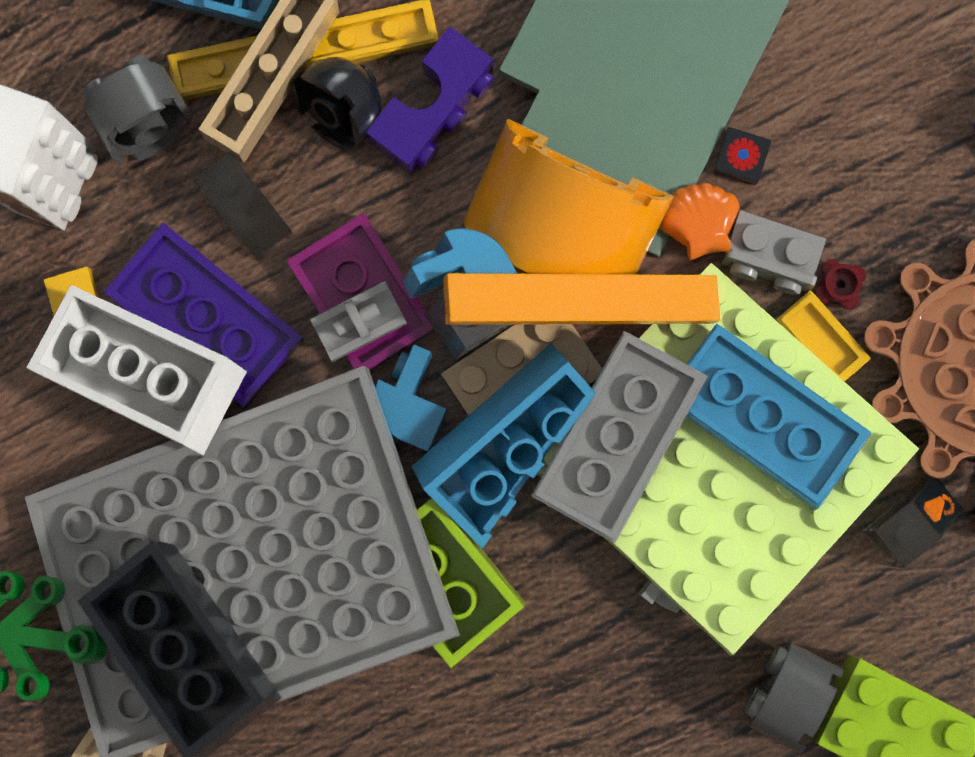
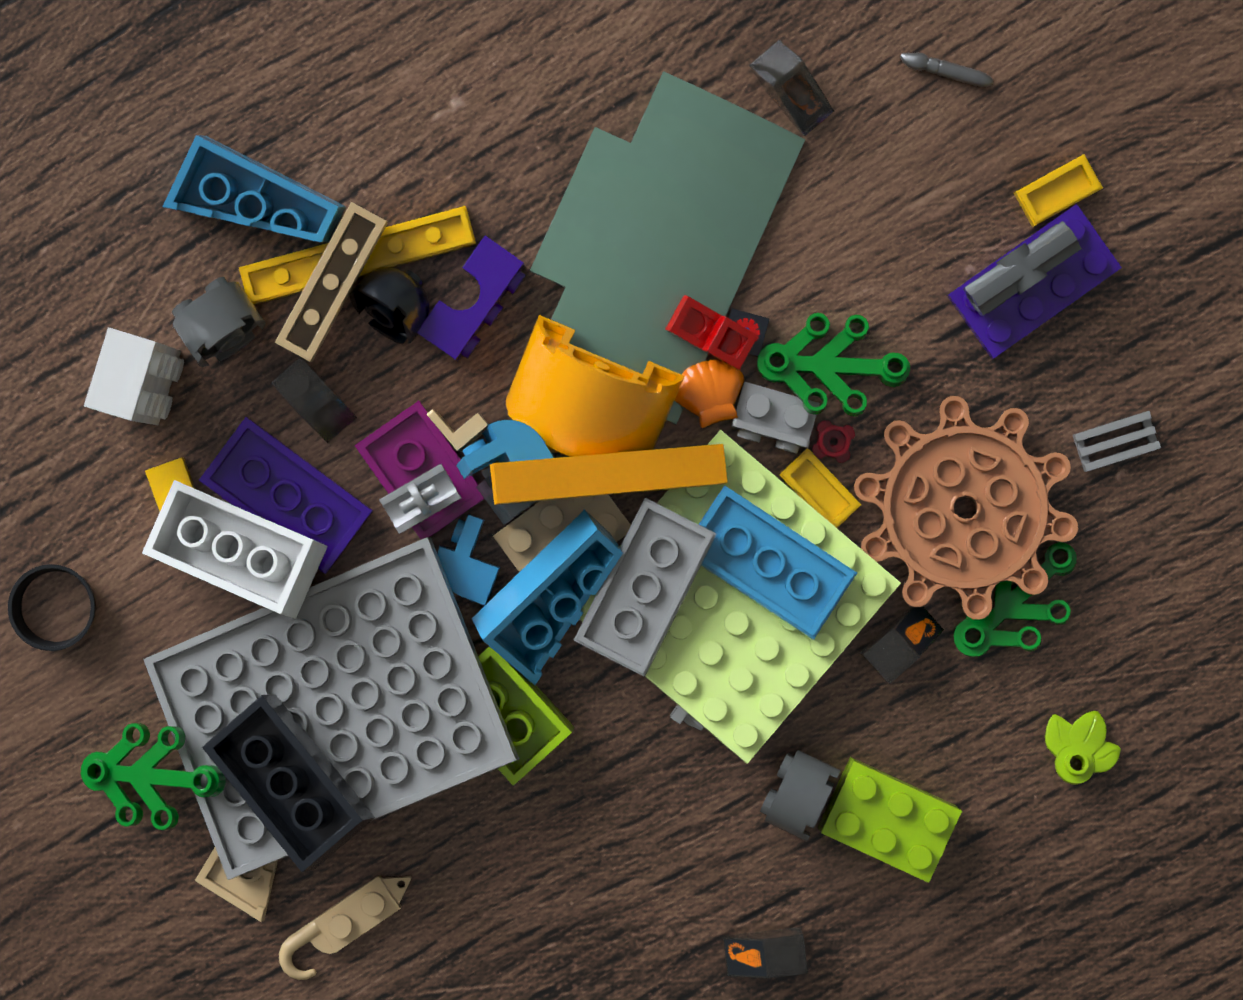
camera: 10 degrees left, 5 degrees up
(412, 247) = (465, 434): none -> tan panel
(705, 151) = (711, 332): none -> red slope
(837, 196) = (827, 365): none -> green plant

